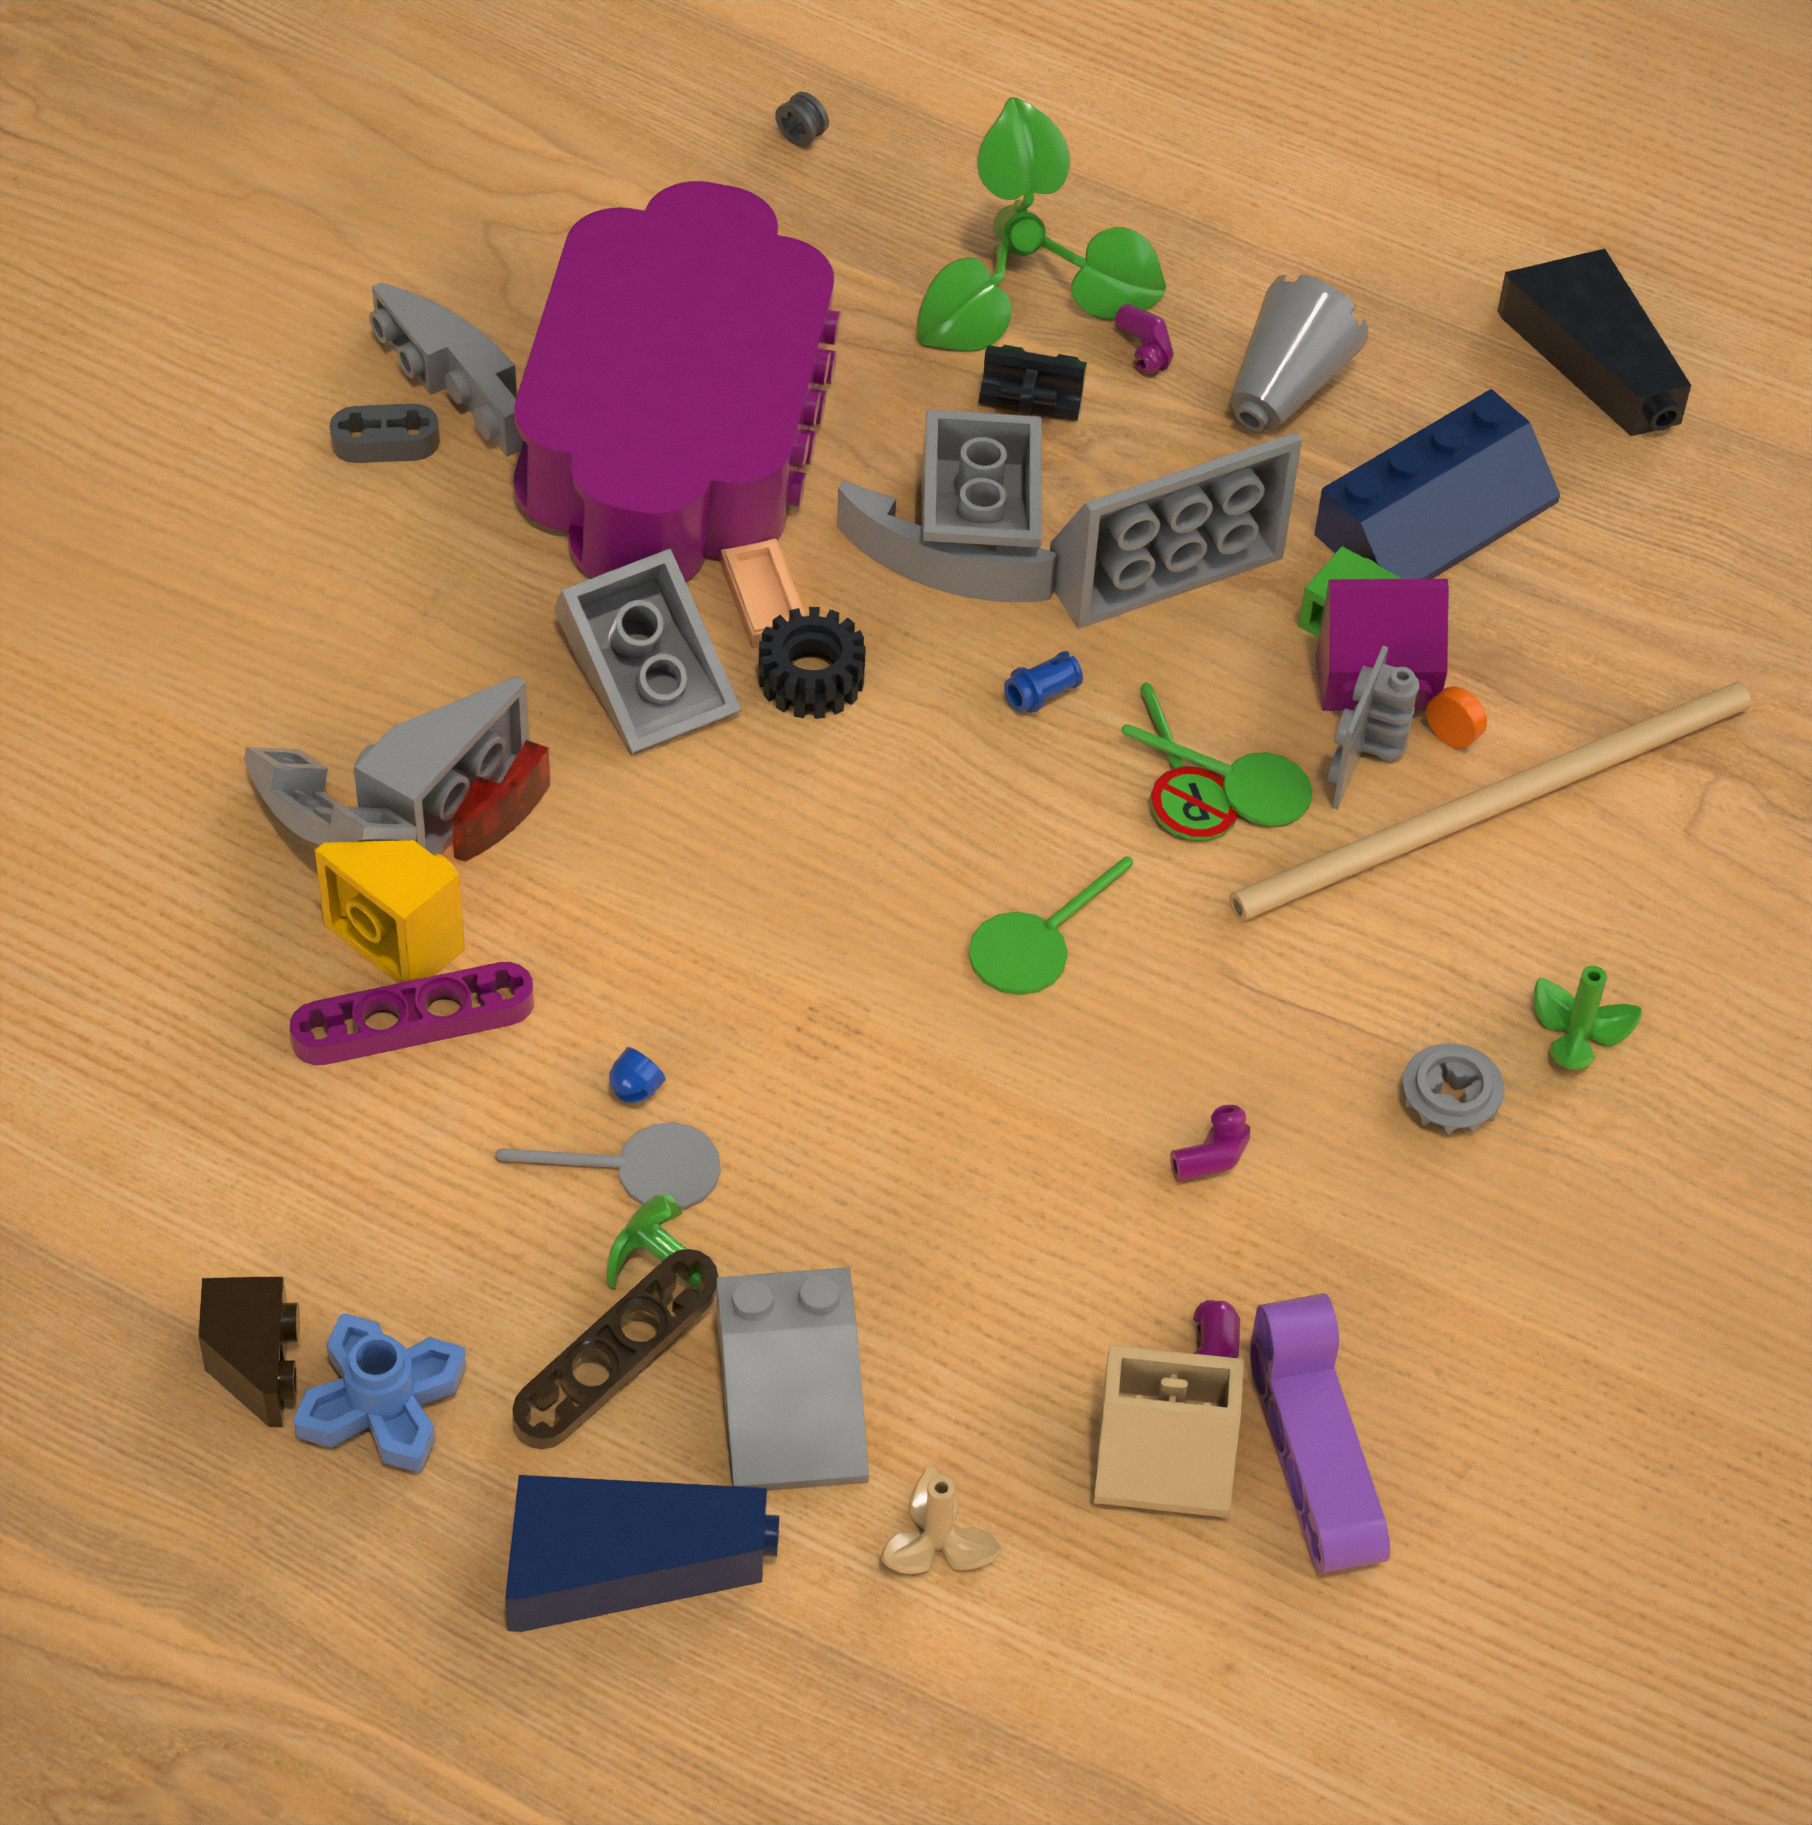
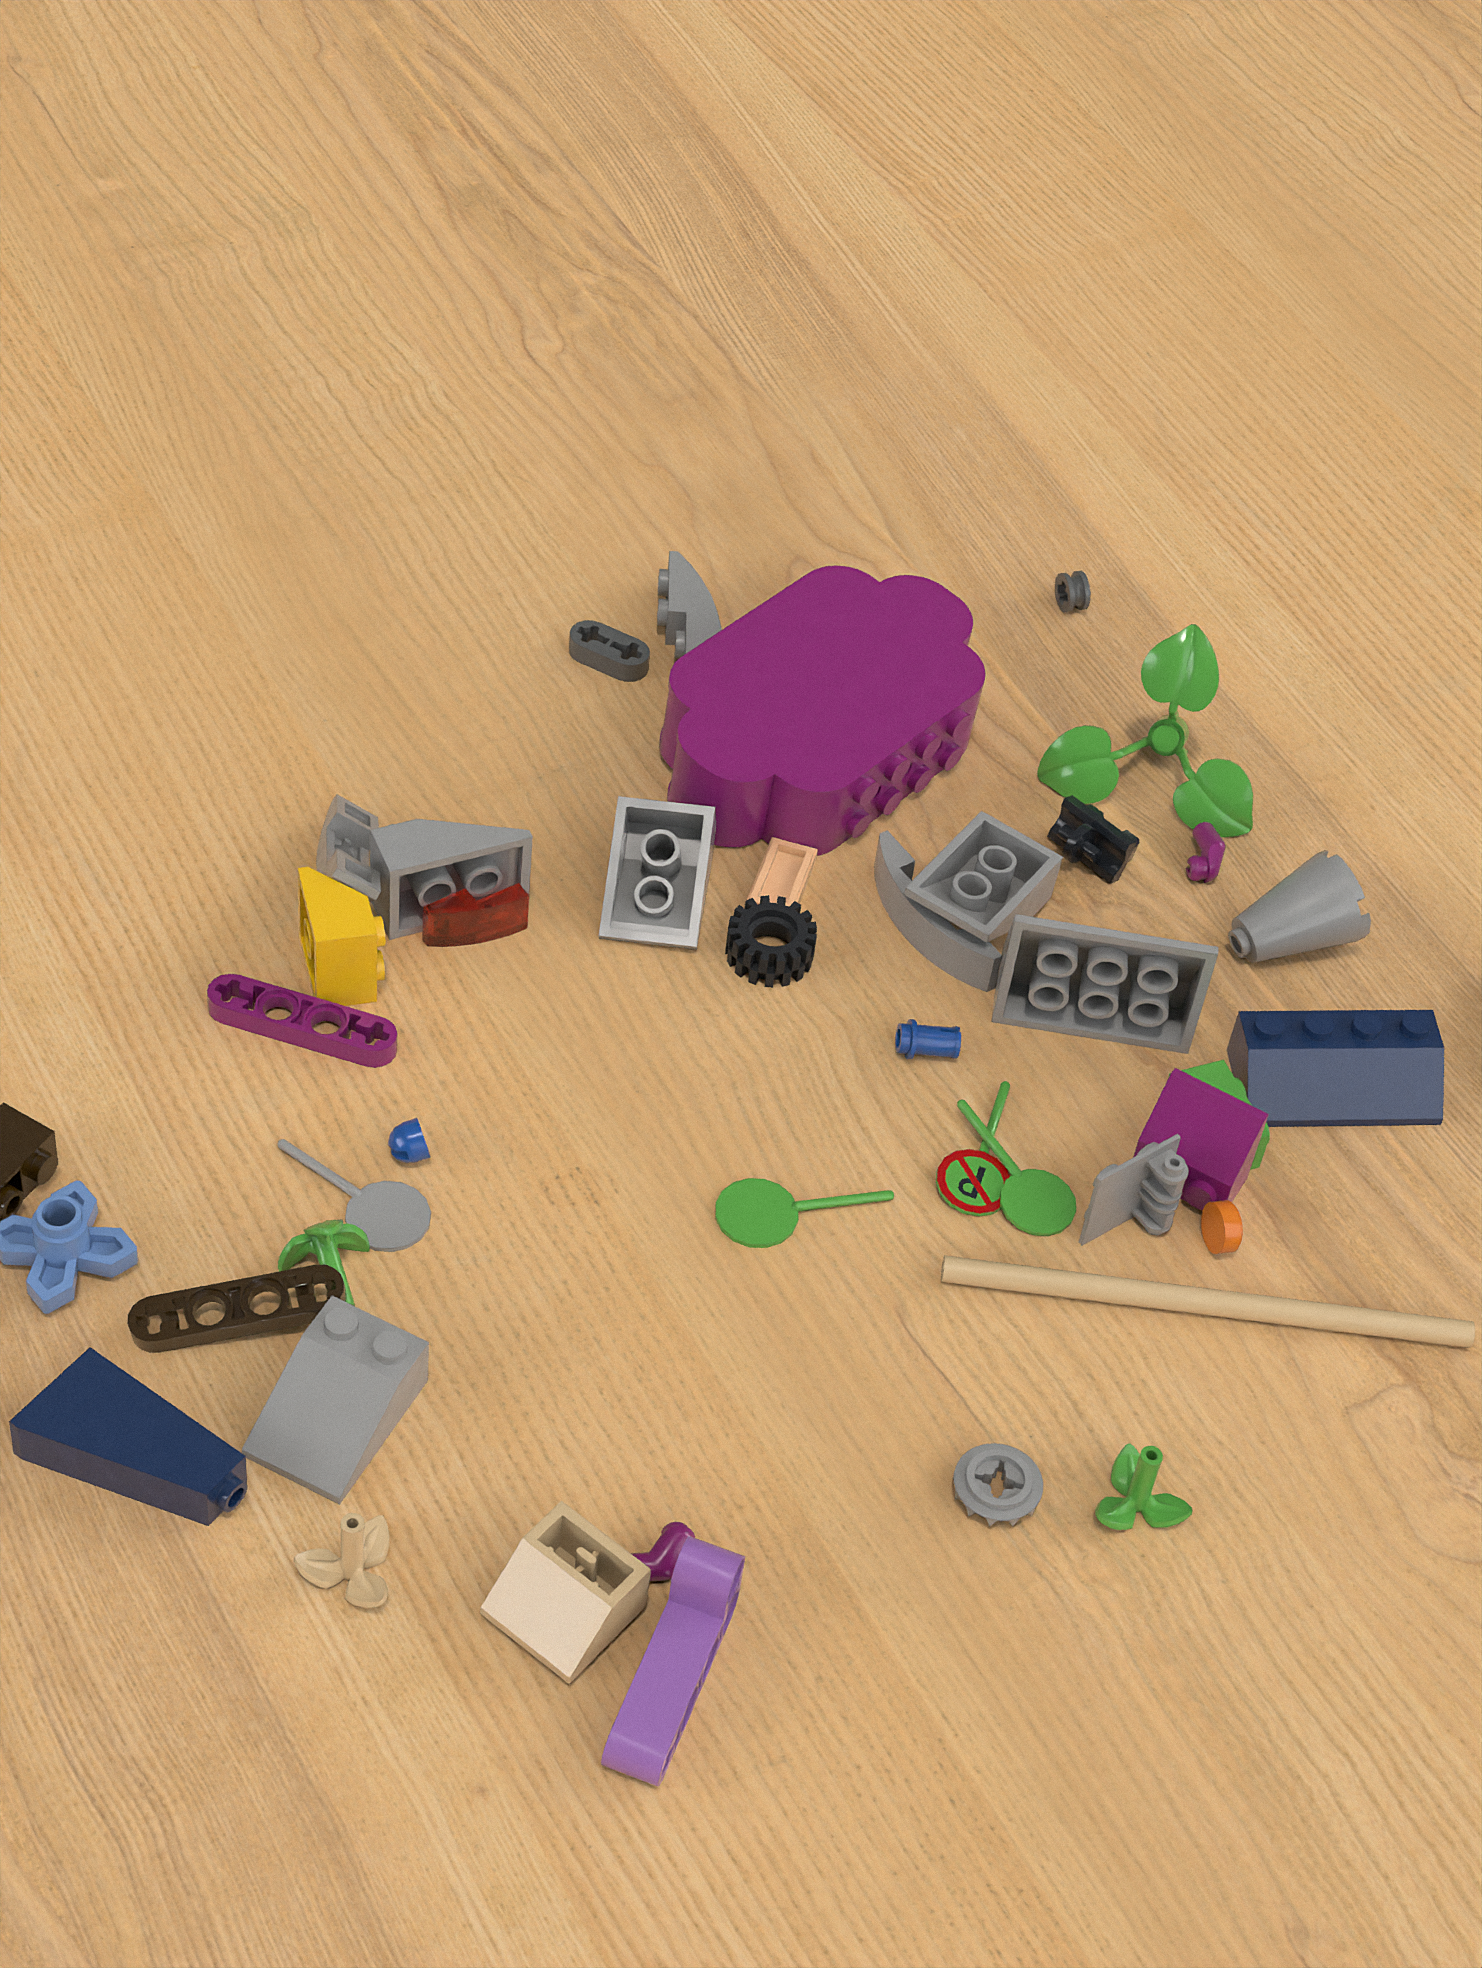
camera: 30 degrees right, 5 degrees down
(1220, 1149) = (783, 1427): magenta arm -> none

